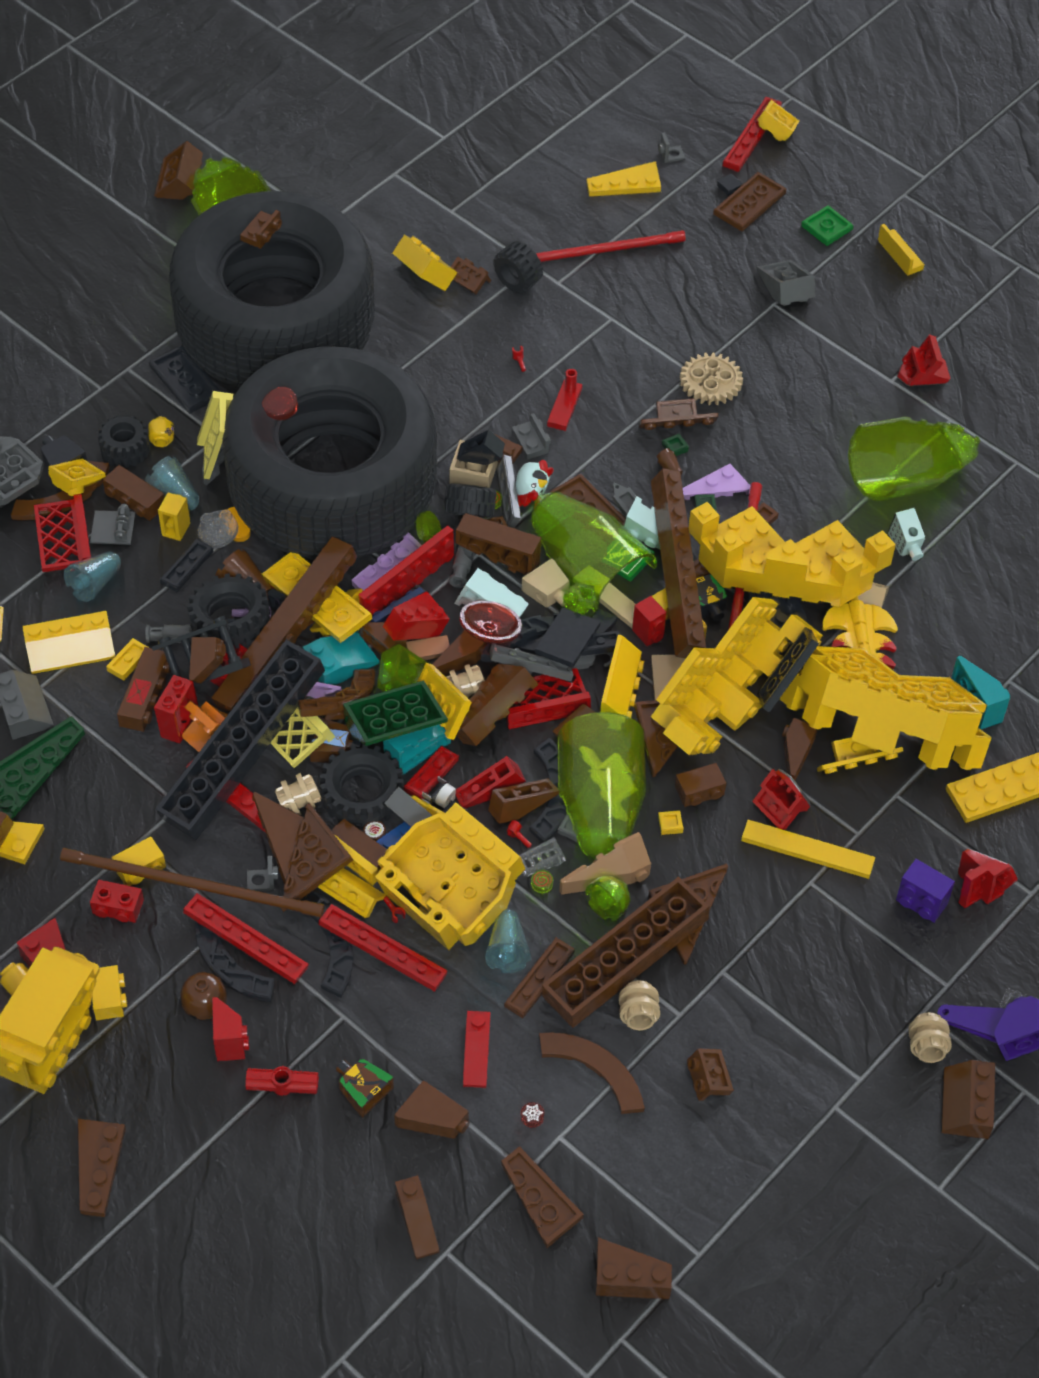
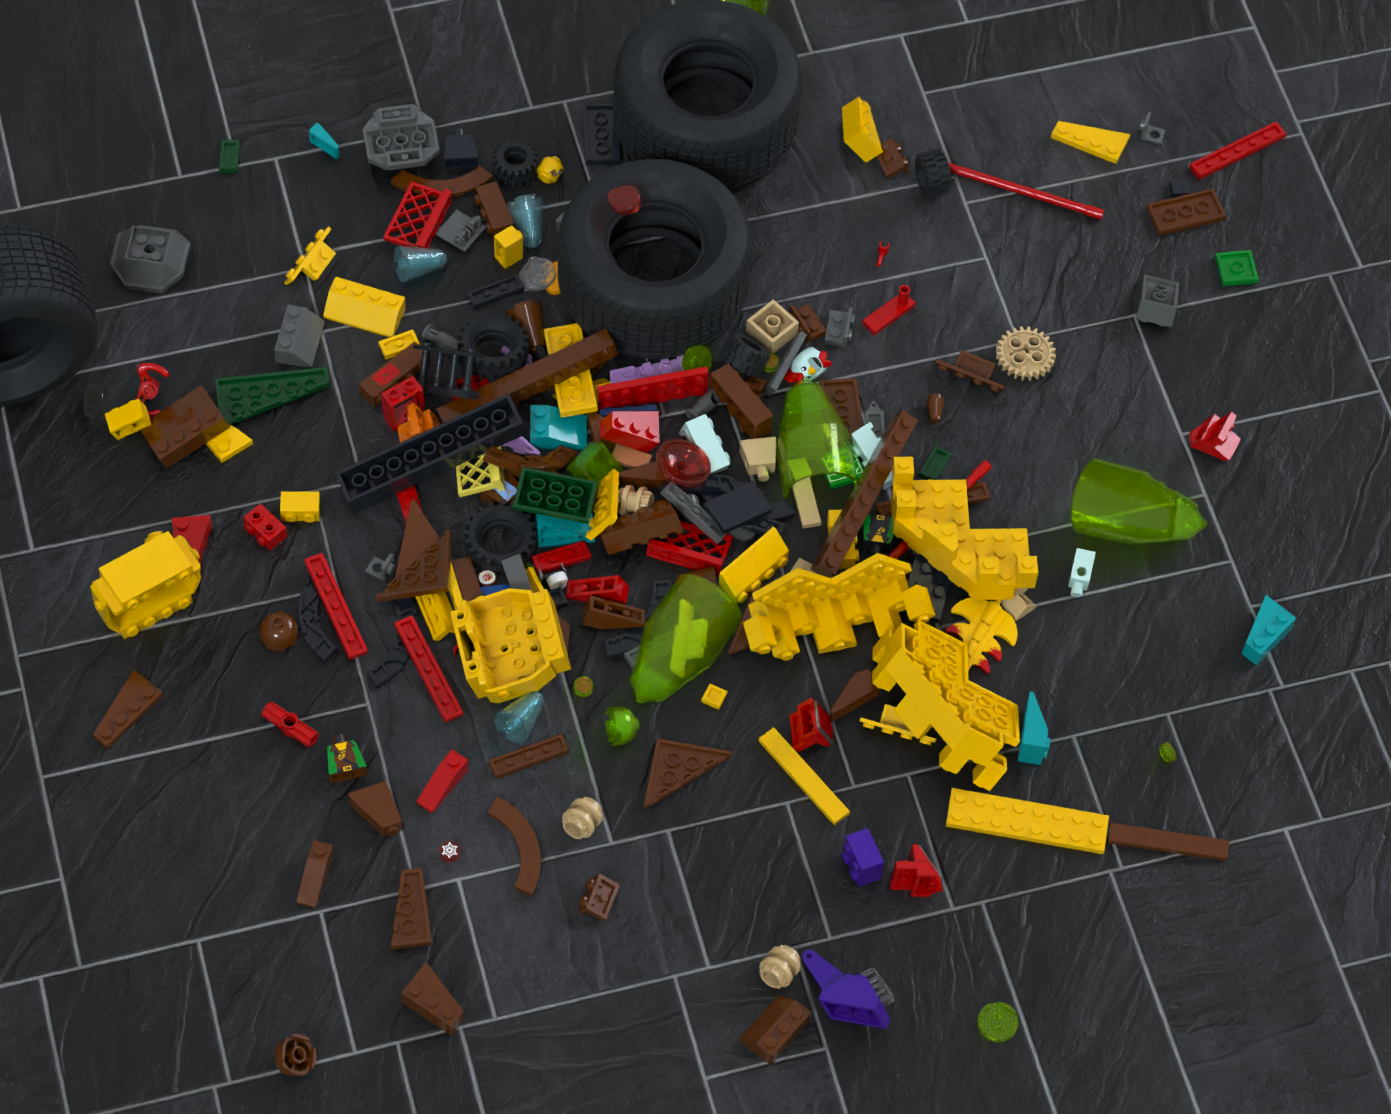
camera: 30 degrees right, 5 degrees up
(74, 475) = (457, 172): yellow slope -> none
(107, 994) = (213, 590): yellow brick -> none
(205, 657) = (442, 375): reddish brown slope -> none
(213, 429) = (584, 175): light yellow fence -> none
(229, 1033) = (272, 668): red slope -> none
(261, 229) = (717, 40): reddish brown bracket -> none
(298, 793) = (445, 518): tan piece -> none
(304, 907) = (390, 606): reddish brown piece -> none
(481, 449) = (781, 317): black slope -> none
(513, 831) = (592, 634): red hand -> none
(551, 861) = (596, 662): clear slope -> none
(580, 598) = (771, 481): clear neon green brick -> none
(625, 952) = (600, 772): reddish brown brick -> none
(626, 862) = (649, 706): medium nougat wedge -> none
(649, 621) = (813, 529): red brick -> none
(676, 444) = (953, 395): dark green tile -> none
(700, 785) = (757, 680): reddish brown brick -> none
(720, 482) = (965, 446): lavender wing -> none
(777, 121) = (1266, 150): yellow slope -> none
(787, 669) = (884, 626): black tile -> none
(899, 250) = (1281, 323): yellow panel -> none

